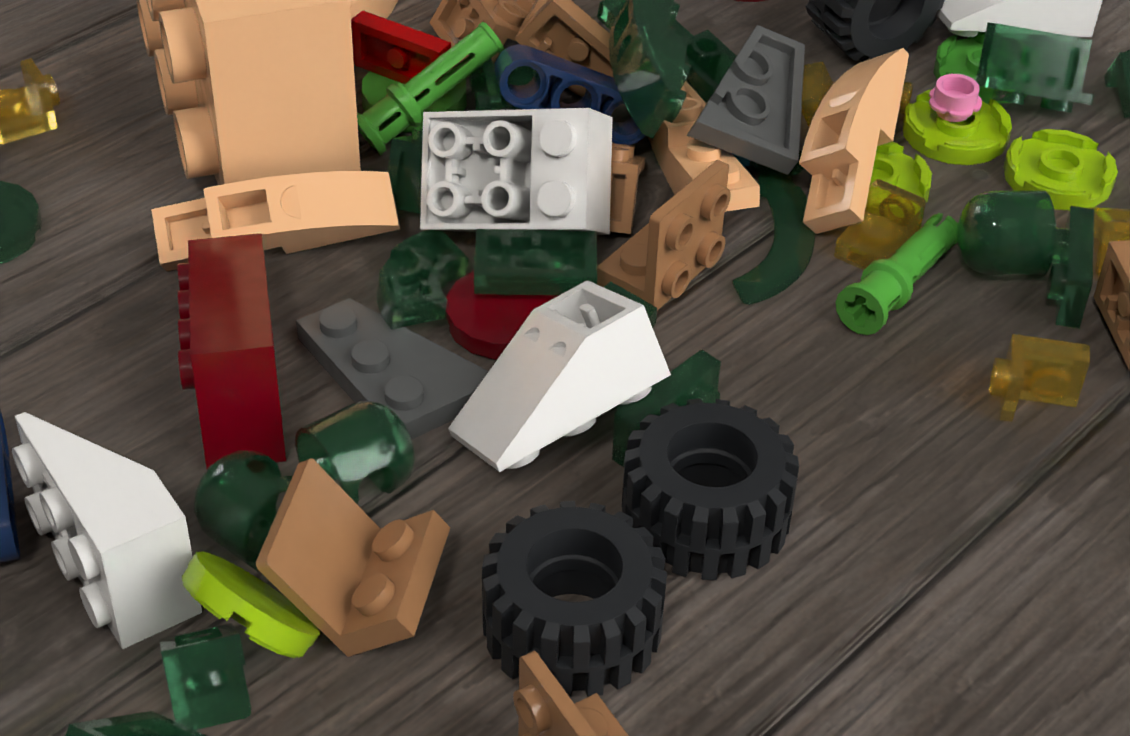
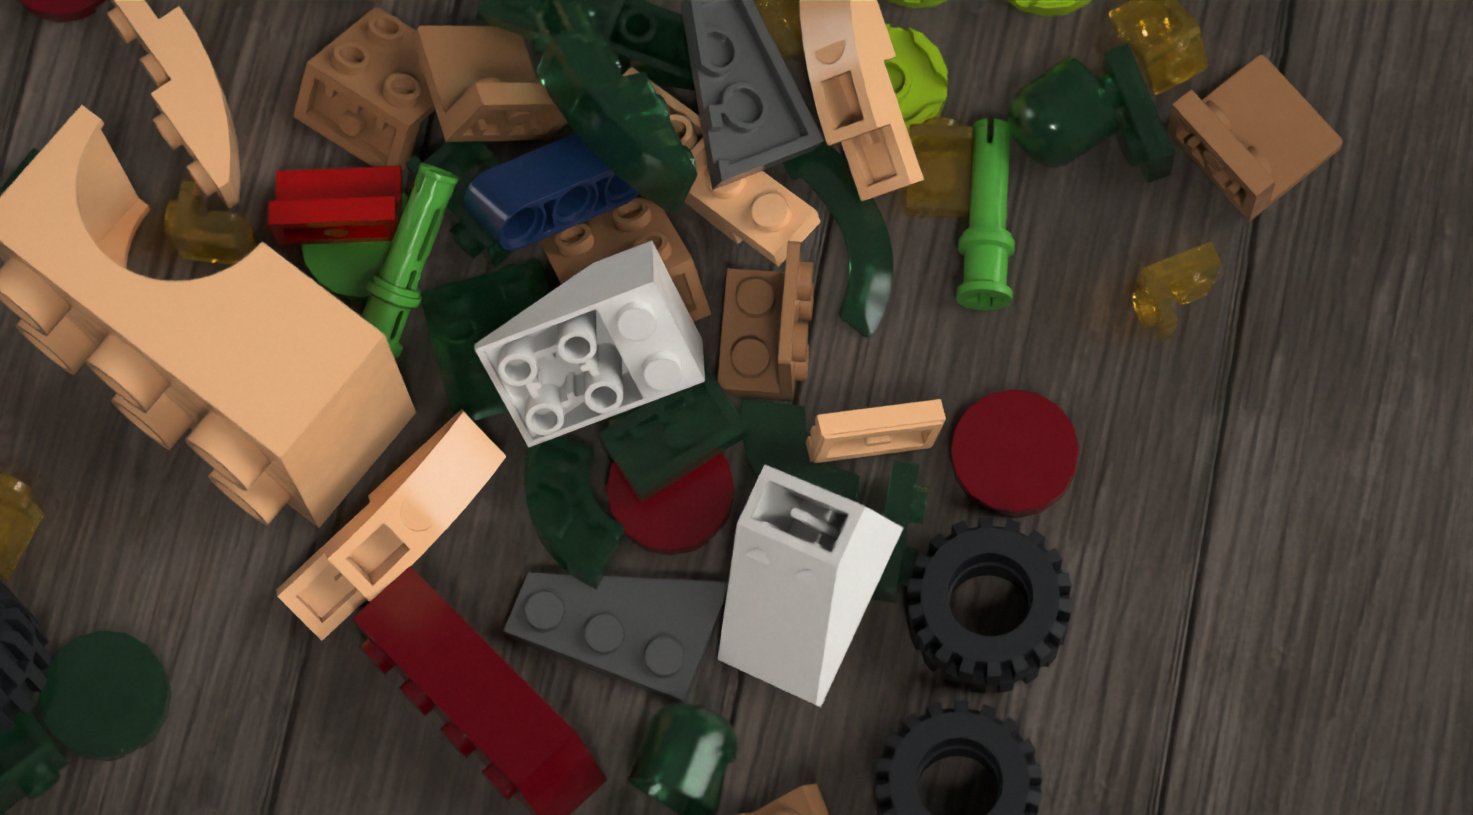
camera: 25 degrees left, 30 degrees up
(706, 328) = (875, 431): none -> light nougat tile
(822, 415) = (1014, 453): none -> dark red tile

